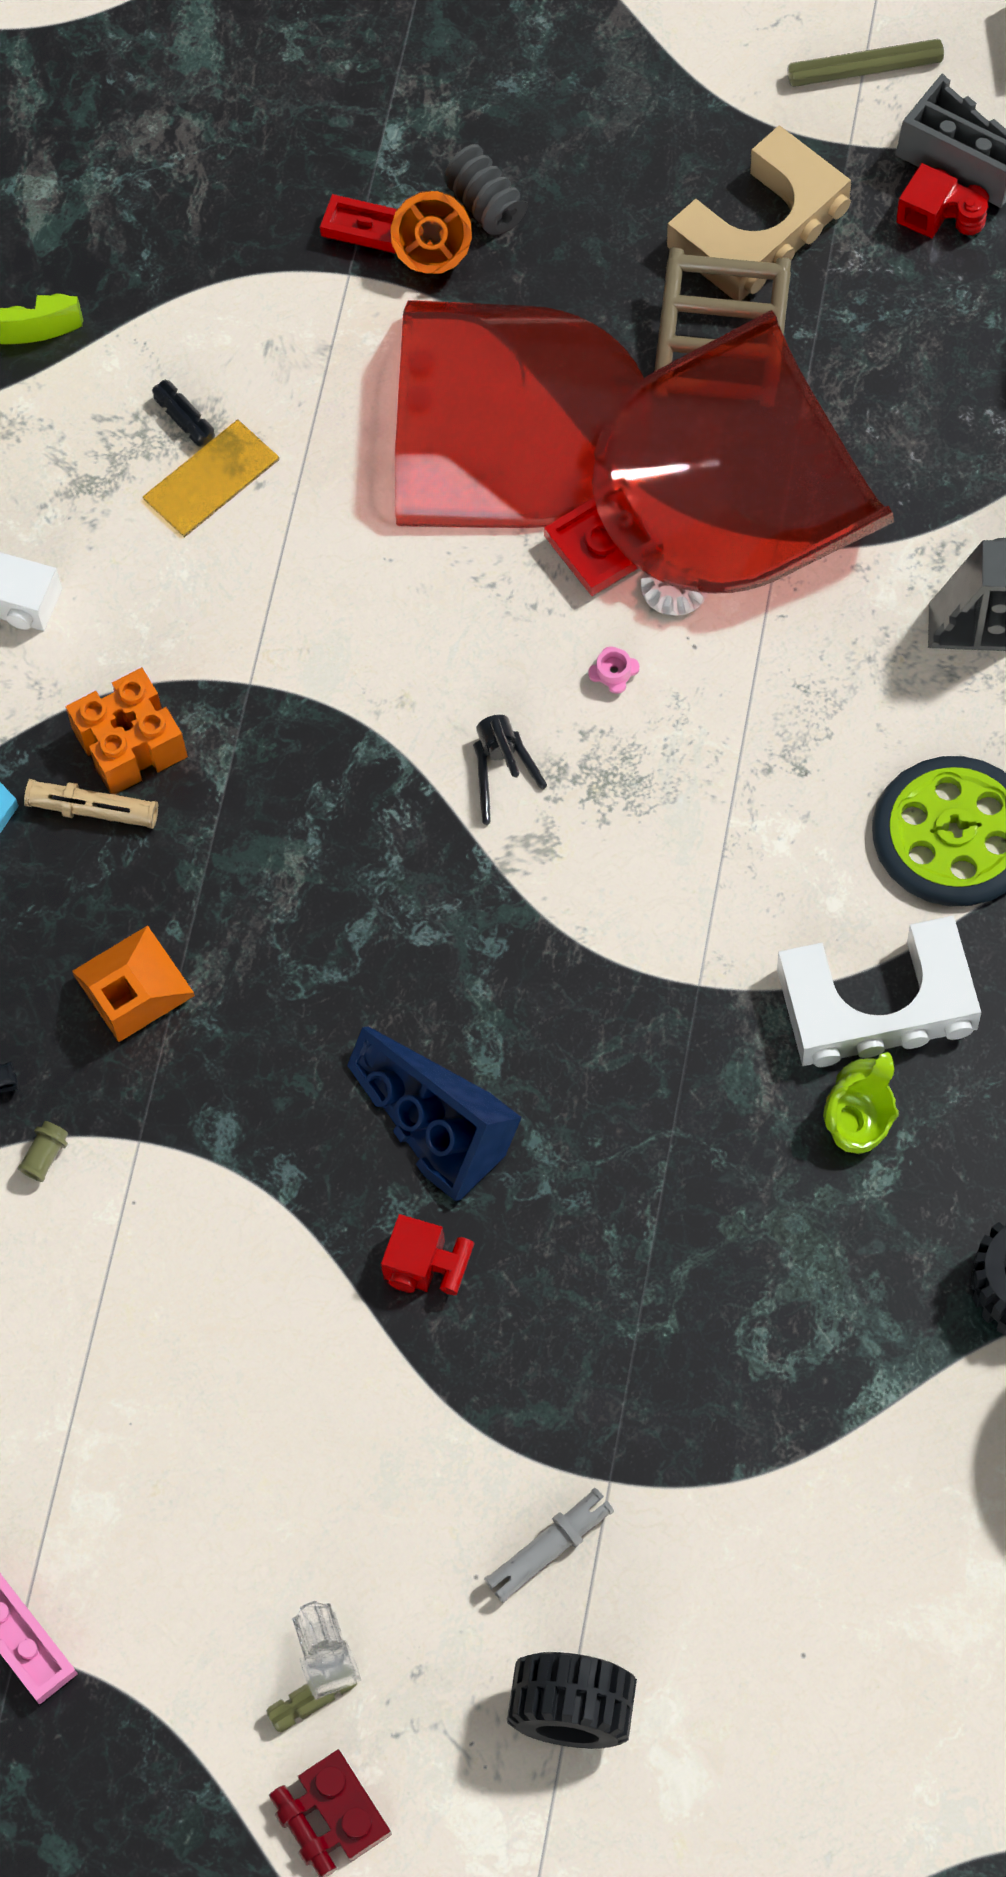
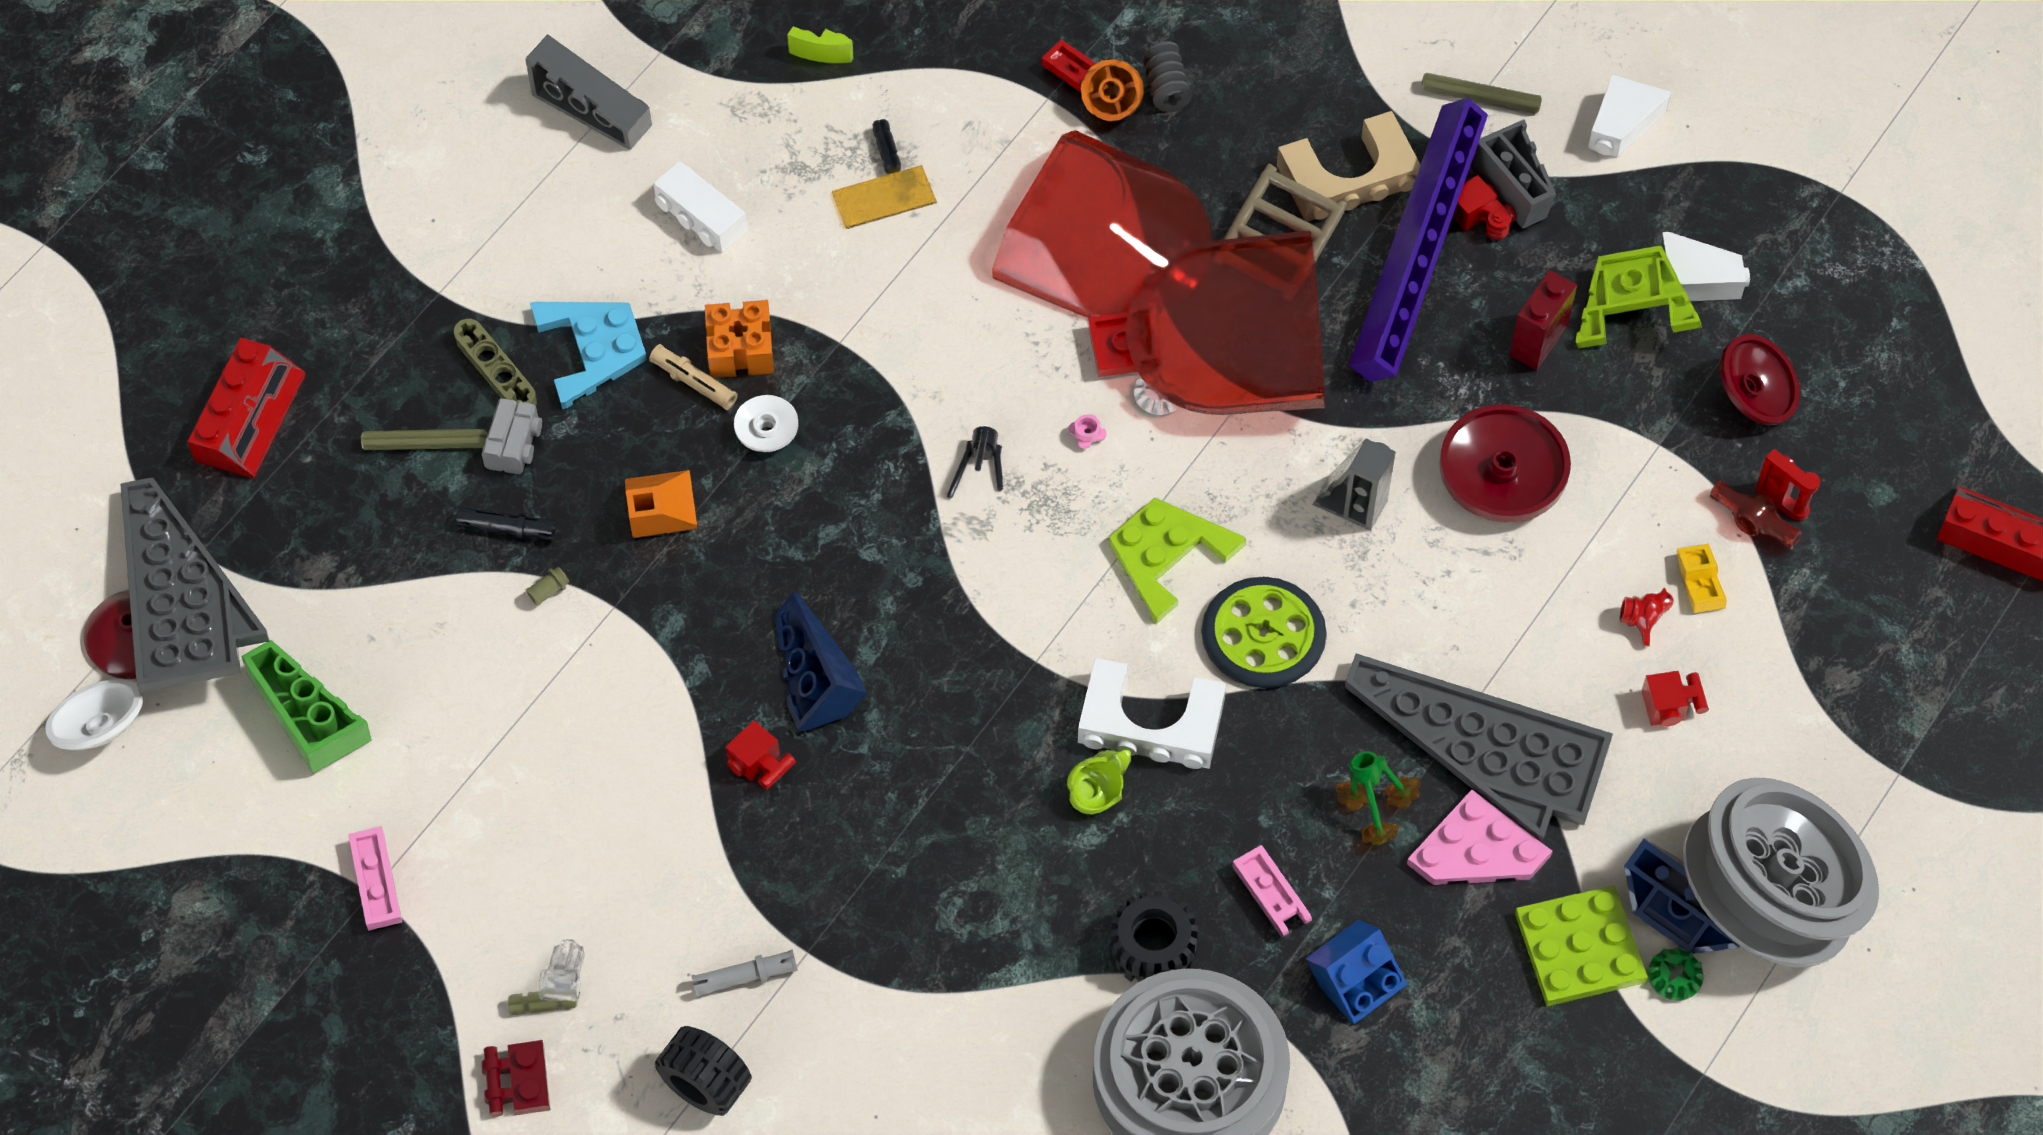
camera: 20 degrees right, 5 degrees down
(209, 809) = (766, 412): none -> white dish
(769, 770) = (1158, 540): none -> lime wing
(896, 271) = (1418, 240): none -> dark purple brick

